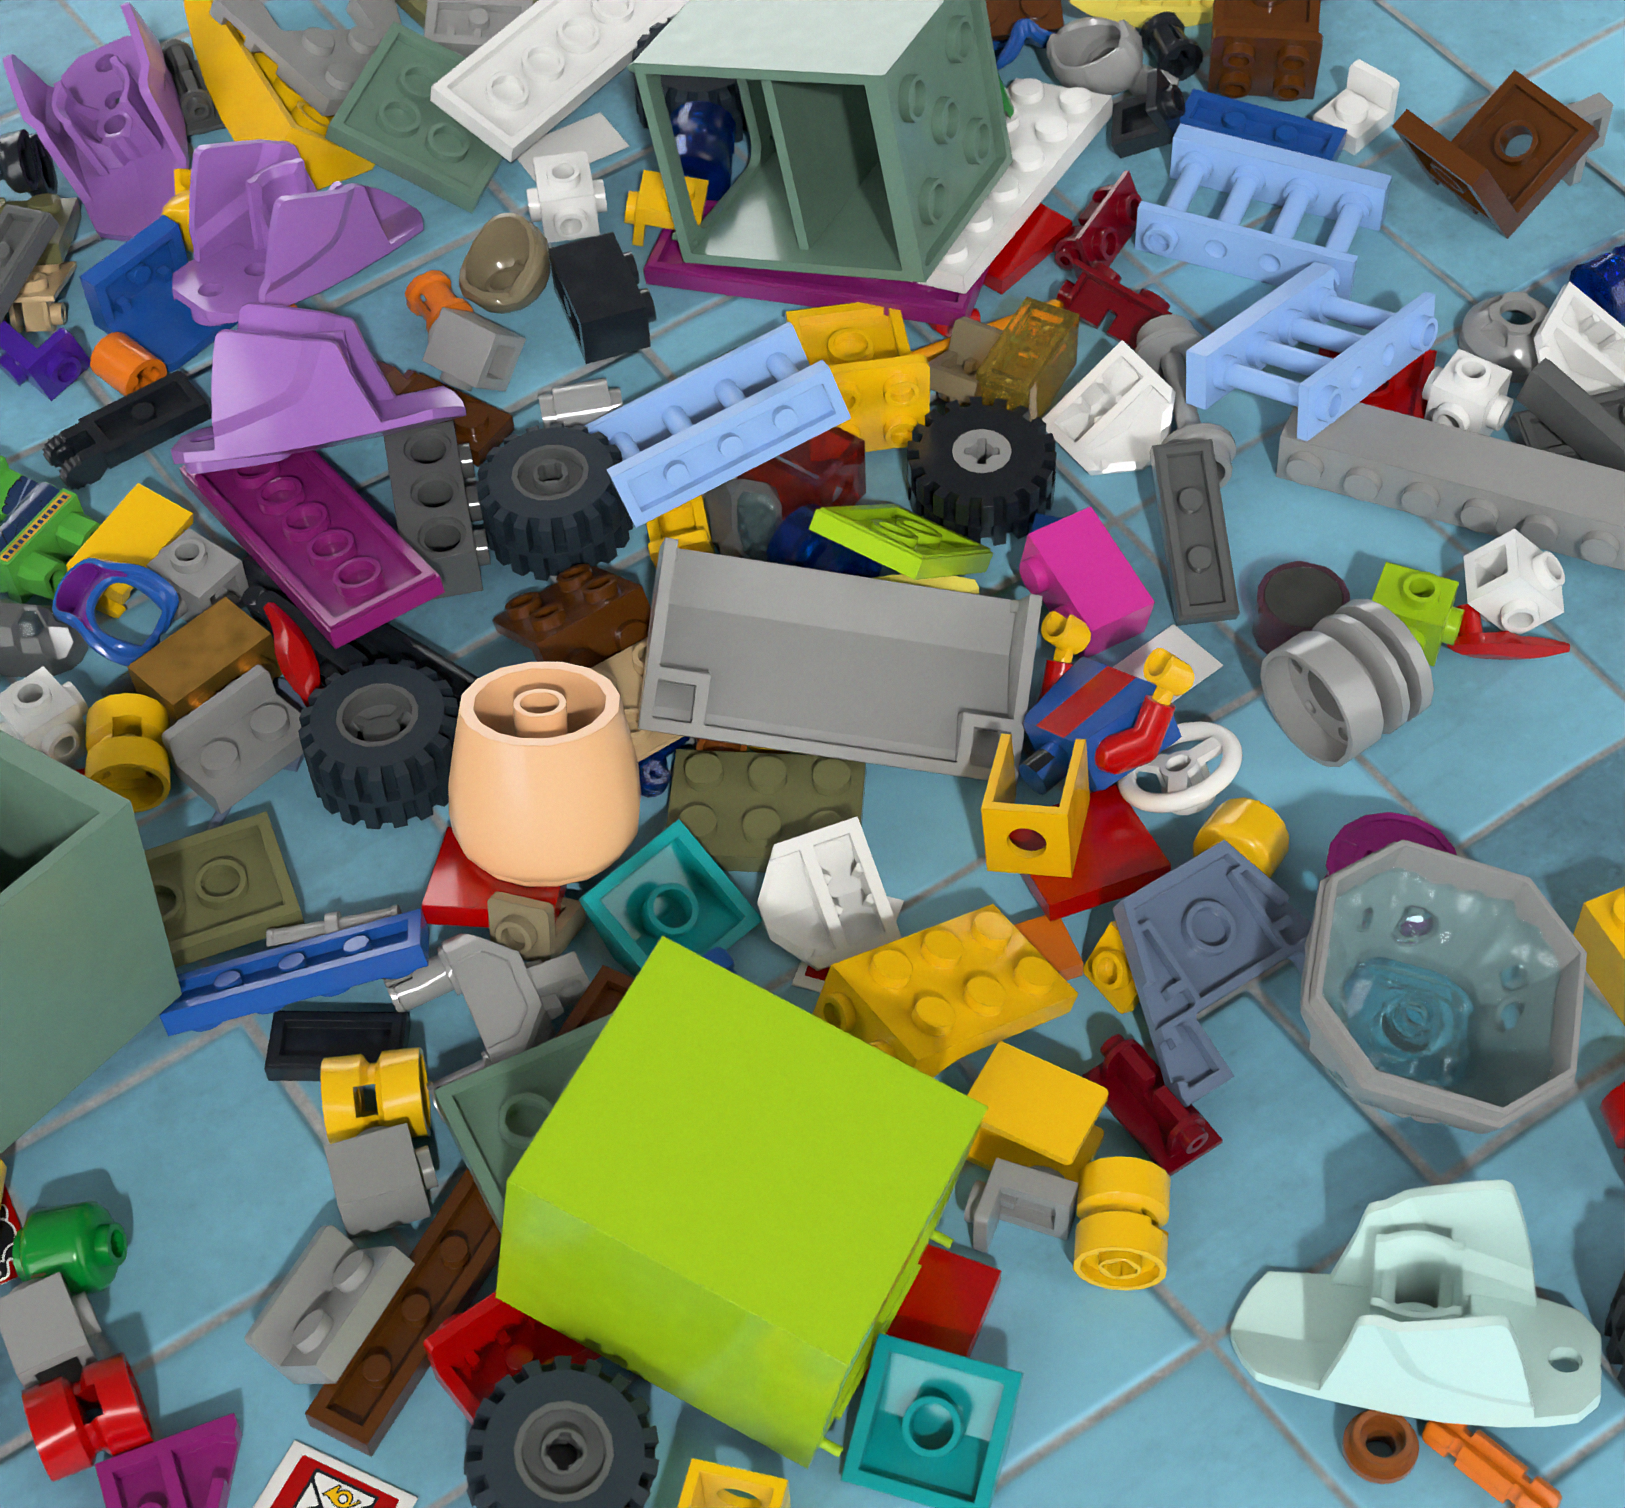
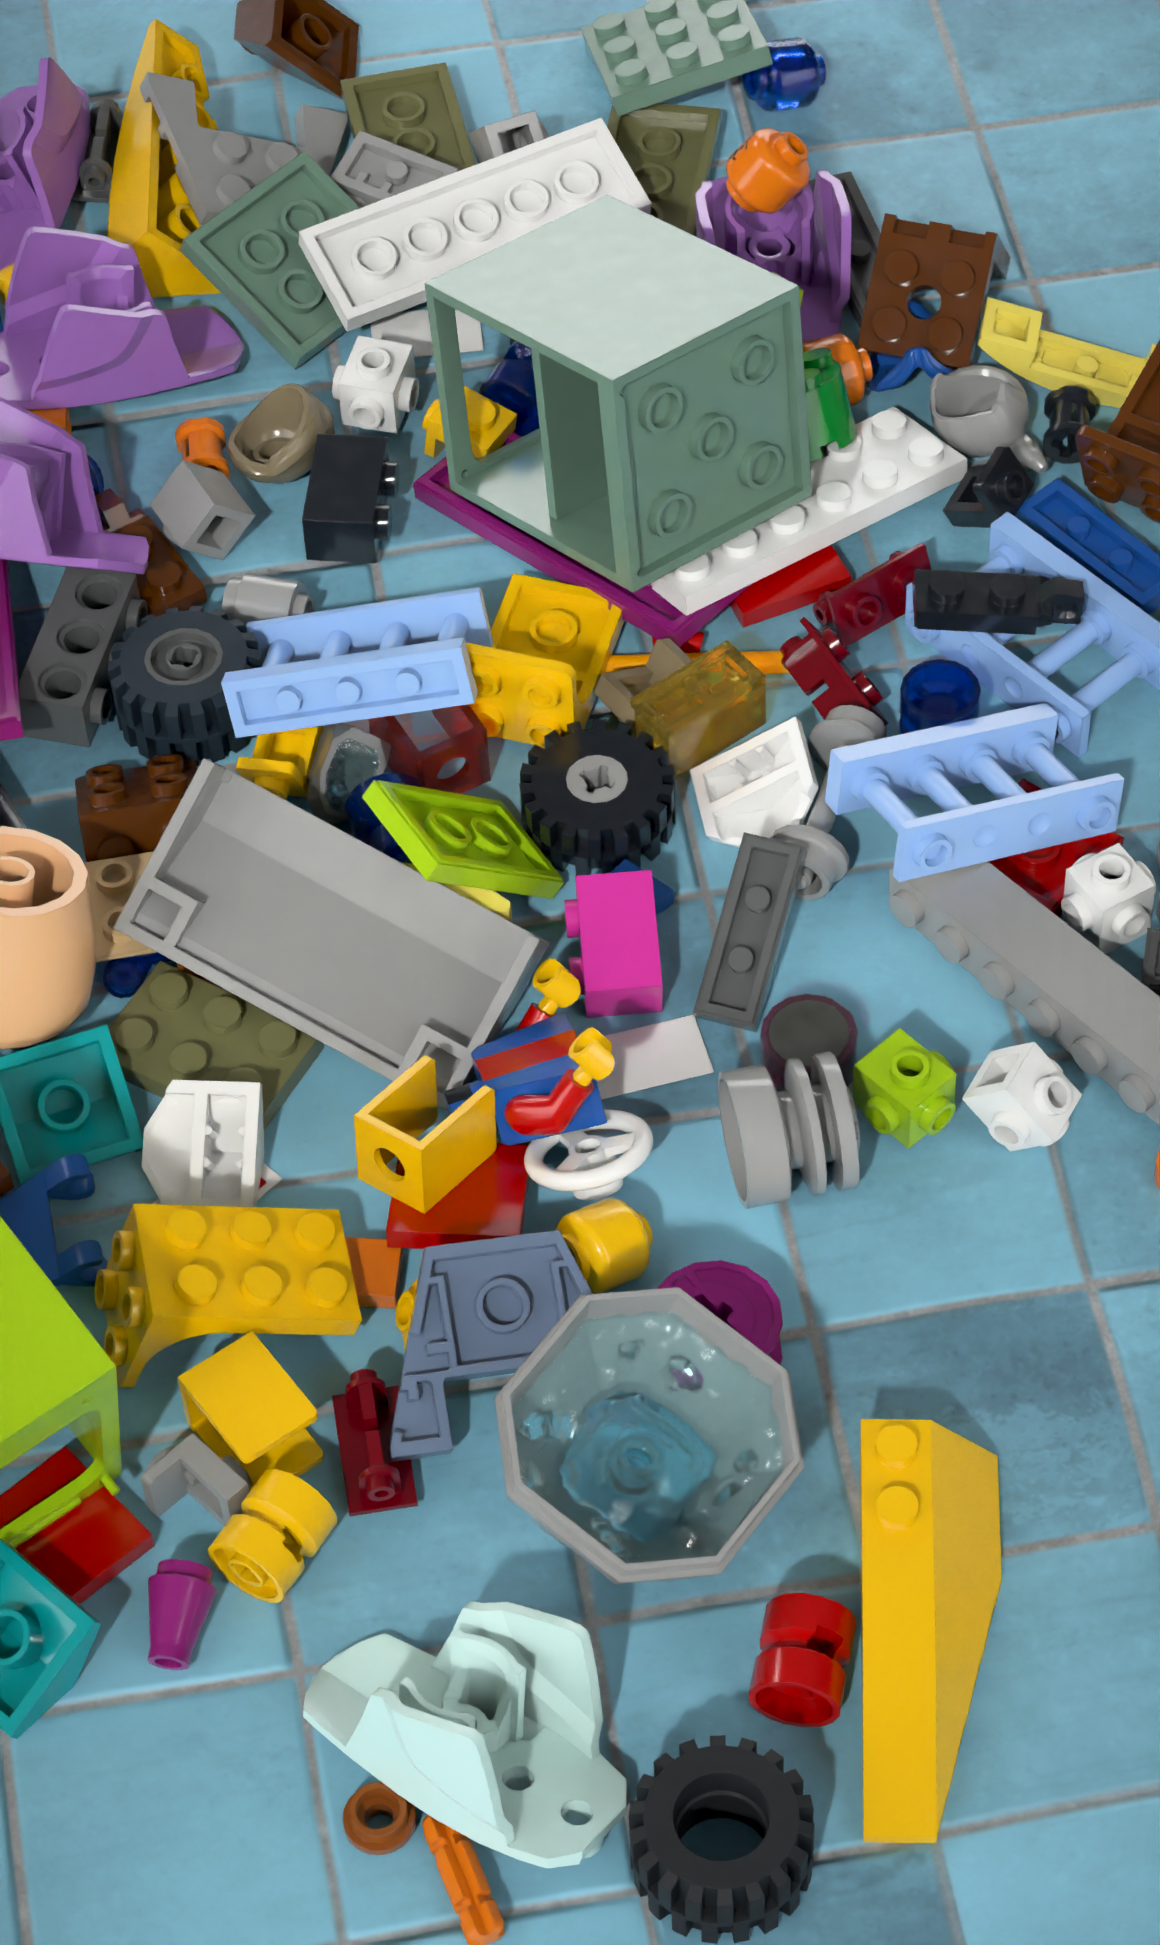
camera: 25 degrees right, 0 degrees up
(1073, 1332) = (178, 1608): none -> magenta cone
(1221, 194) = (993, 601): none -> black hinge
(1226, 287) = (938, 695): none -> clear blue wheel
(1500, 645) = (983, 1151): red bar -> none

